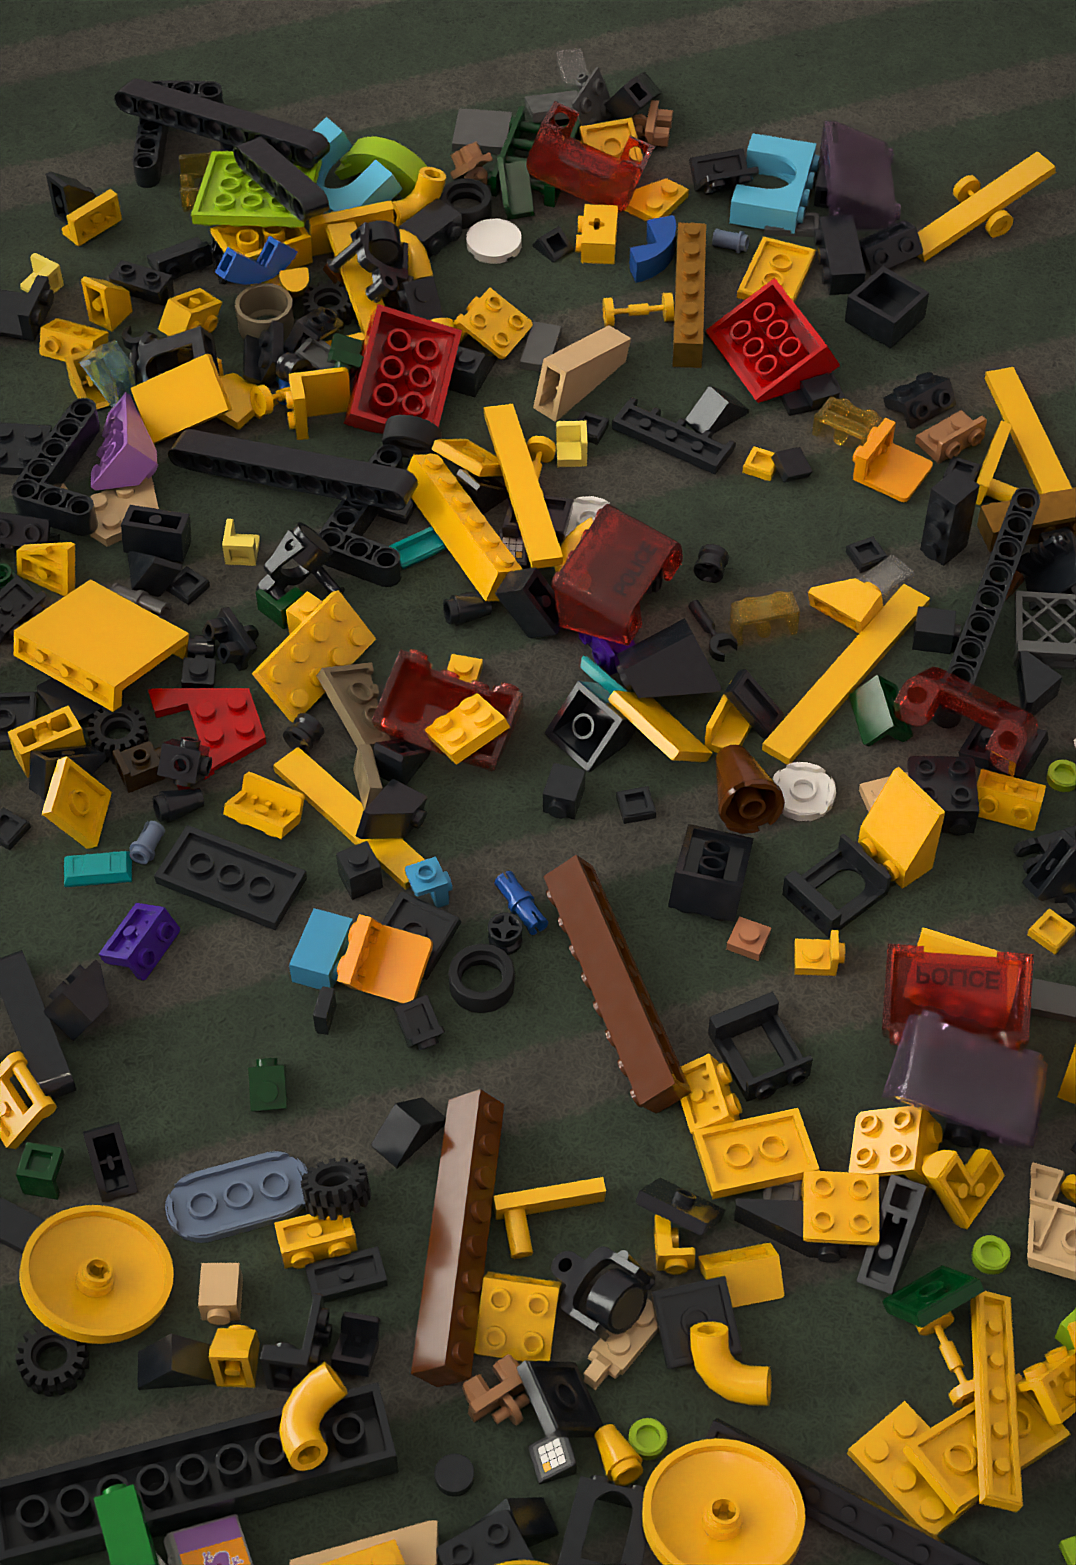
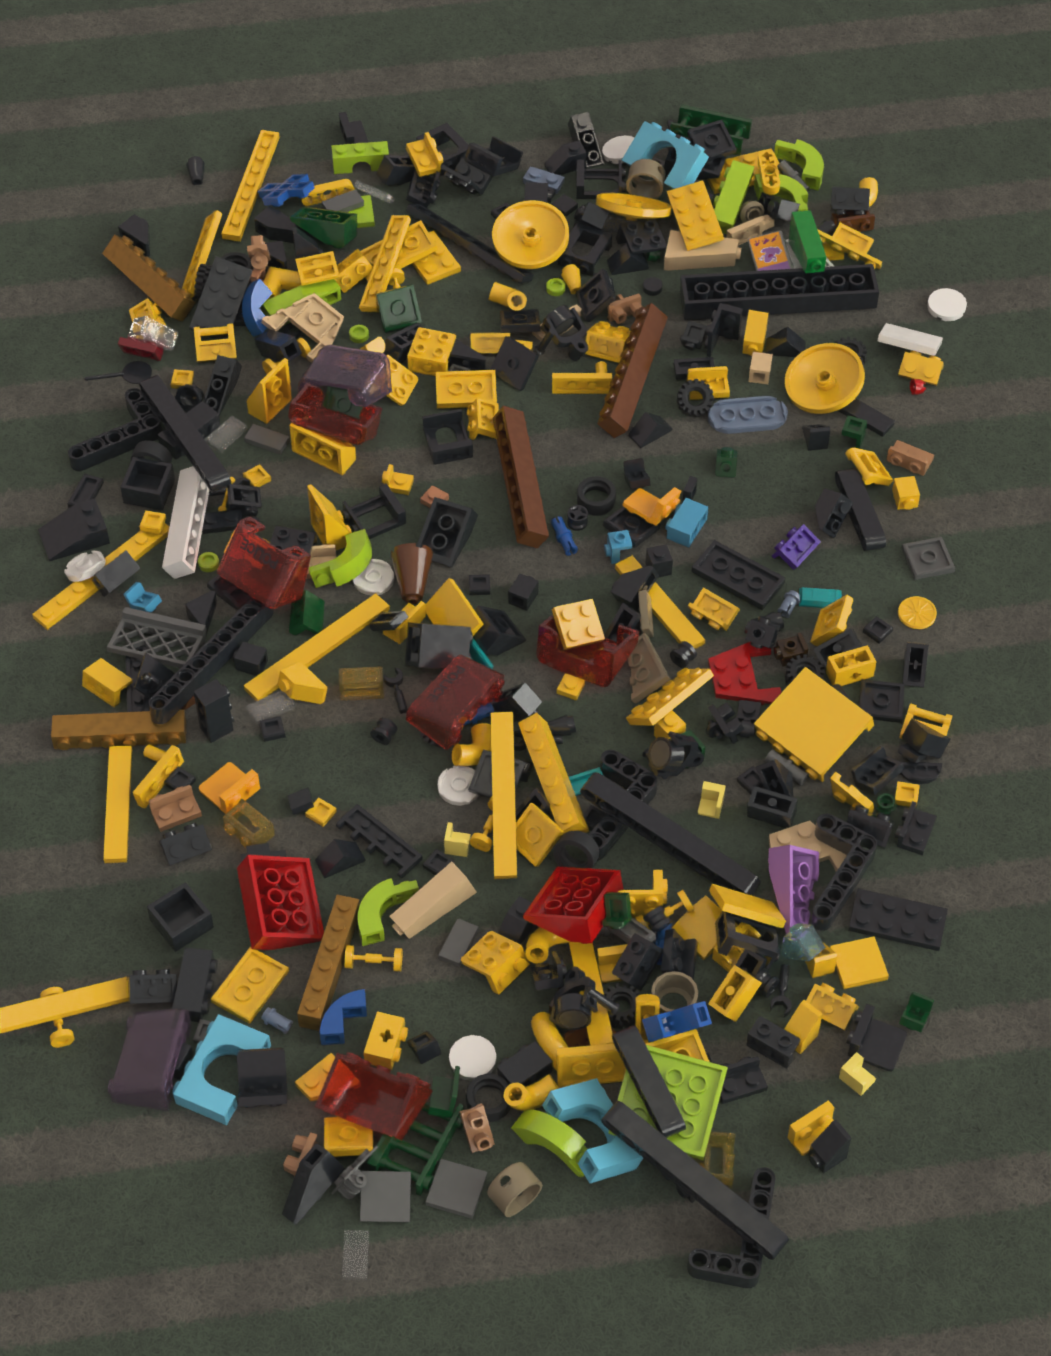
camera: 170 degrees left, 0 degrees up
(38, 394) = (859, 963): none -> yellow tile
(303, 1415) = (724, 285): yellow cylinder -> none
(417, 117) = (507, 1197): none -> dark tan piece
(650, 369) = (376, 903): none -> lime arch
(836, 797) = (347, 565): none -> lime arch

